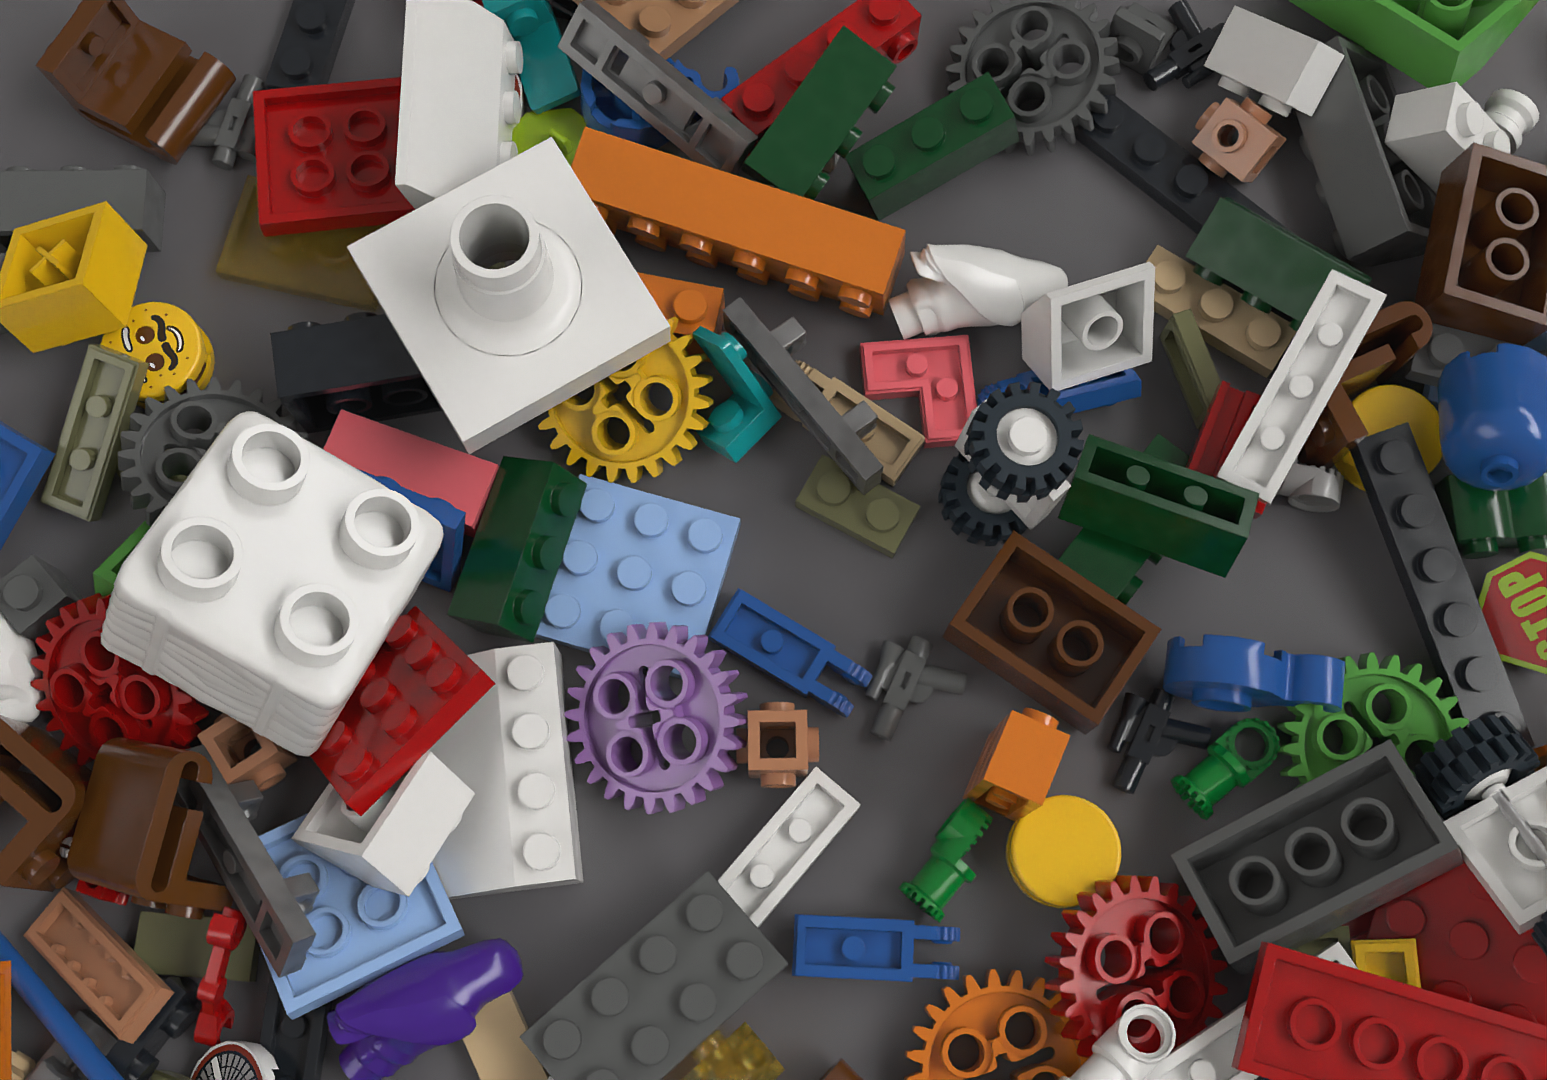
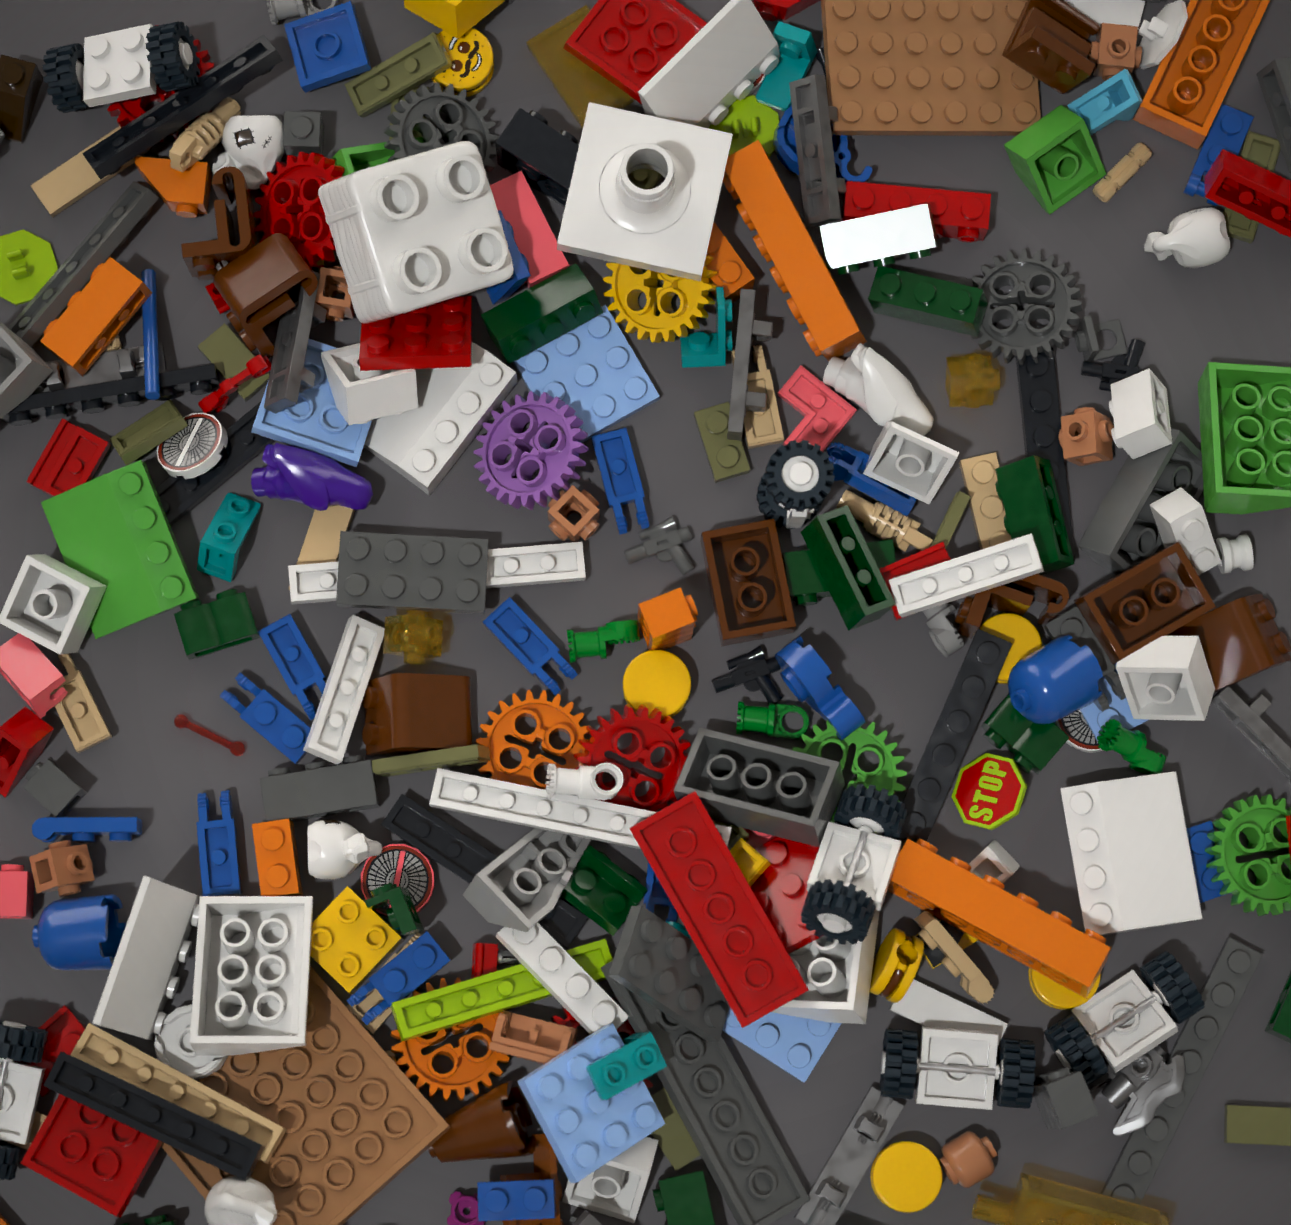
camera: 40 degrees right, 5 degrees up
(98, 965) = (188, 329): nougat plate -> none
(1059, 192) = (971, 380): none -> clear yellow brick
(1139, 419) = (885, 522): none -> tan hinge

